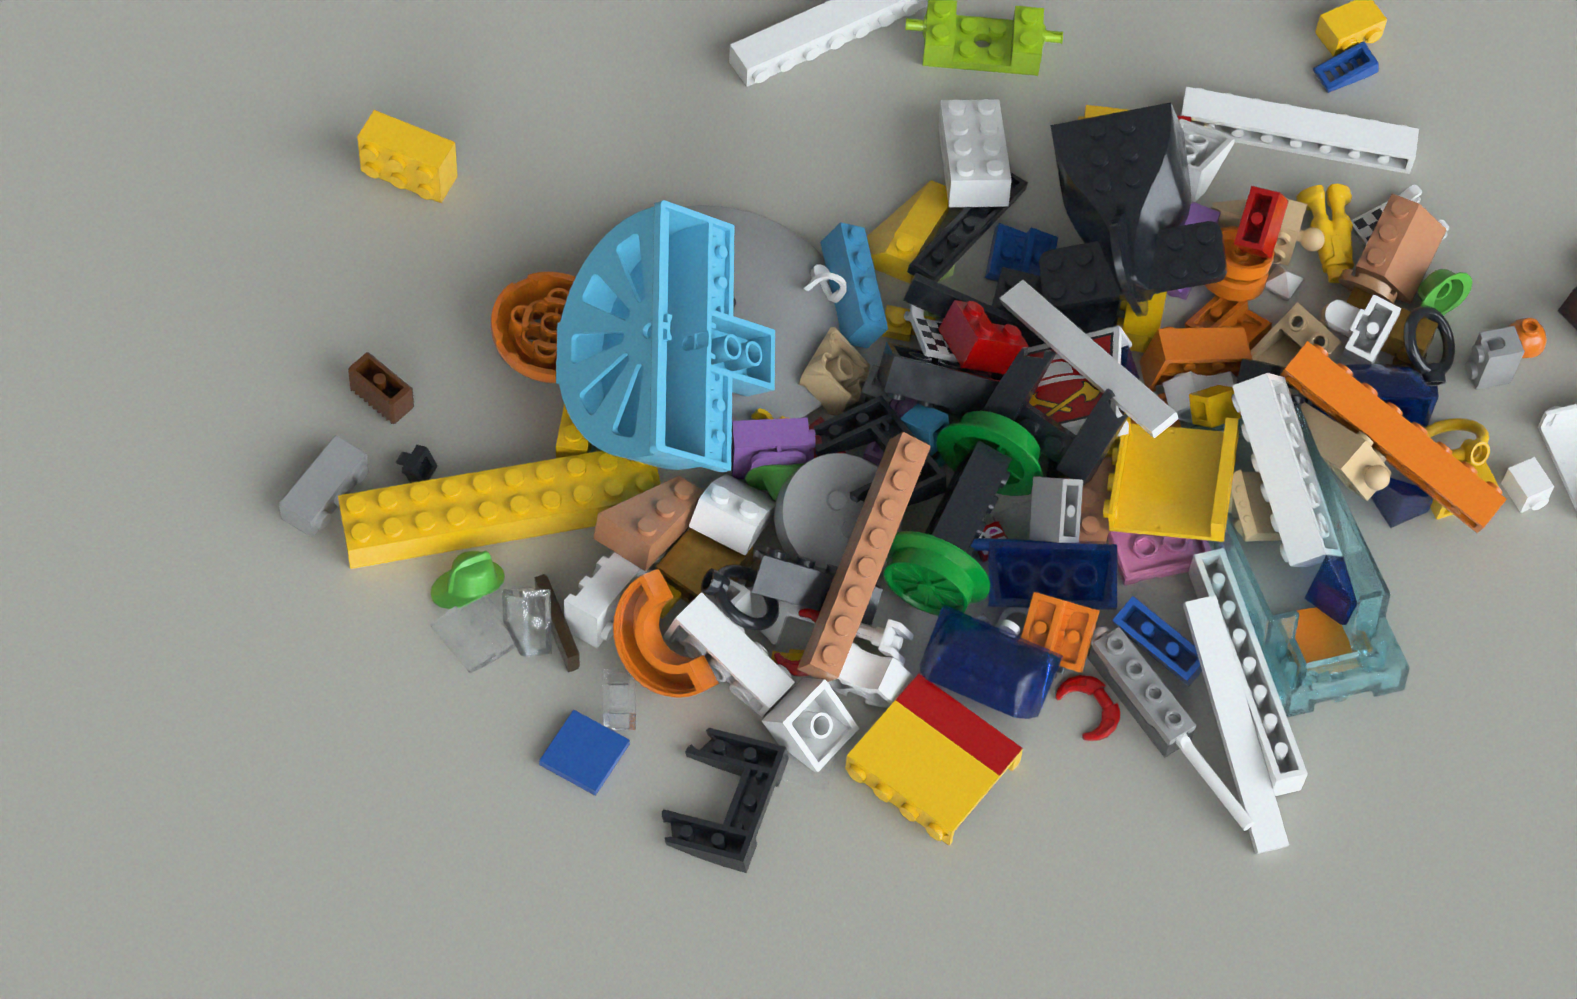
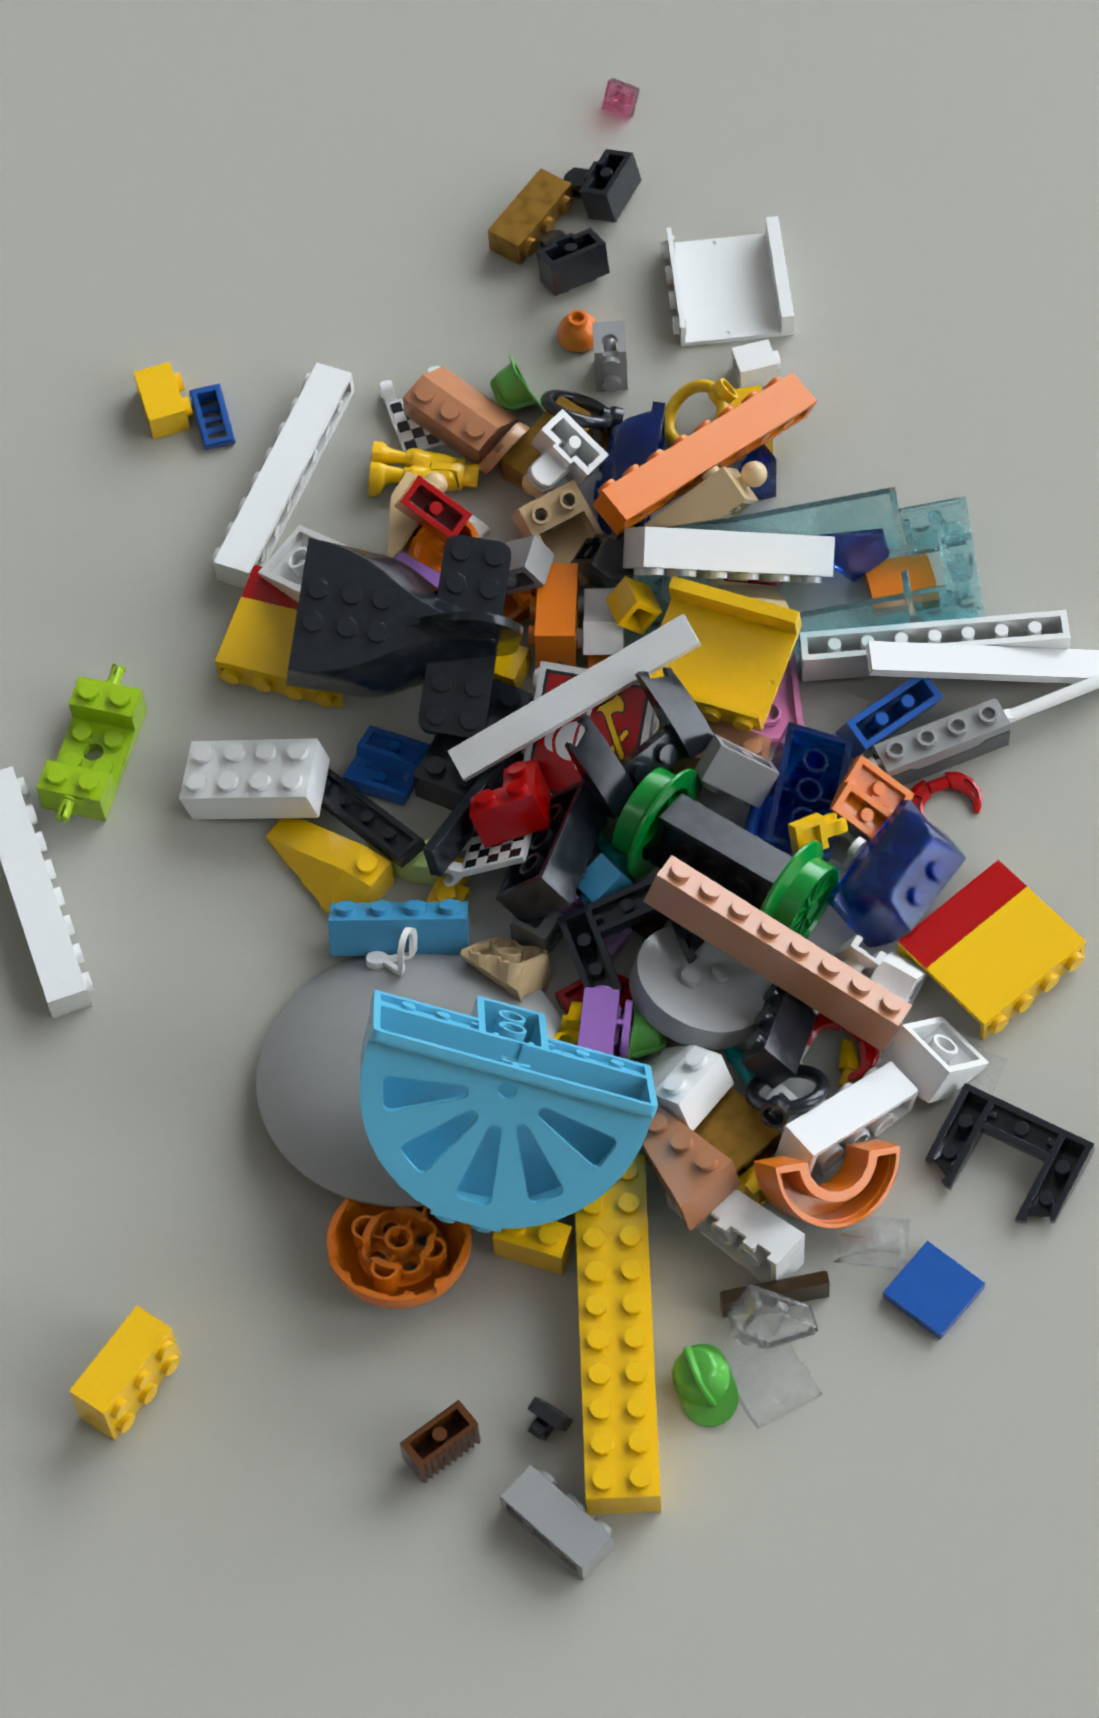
camera: 70 degrees left, 0 degrees up
(1003, 580) = (815, 828): none -> yellow plate
(1234, 307) = (528, 564): none -> light grey brick

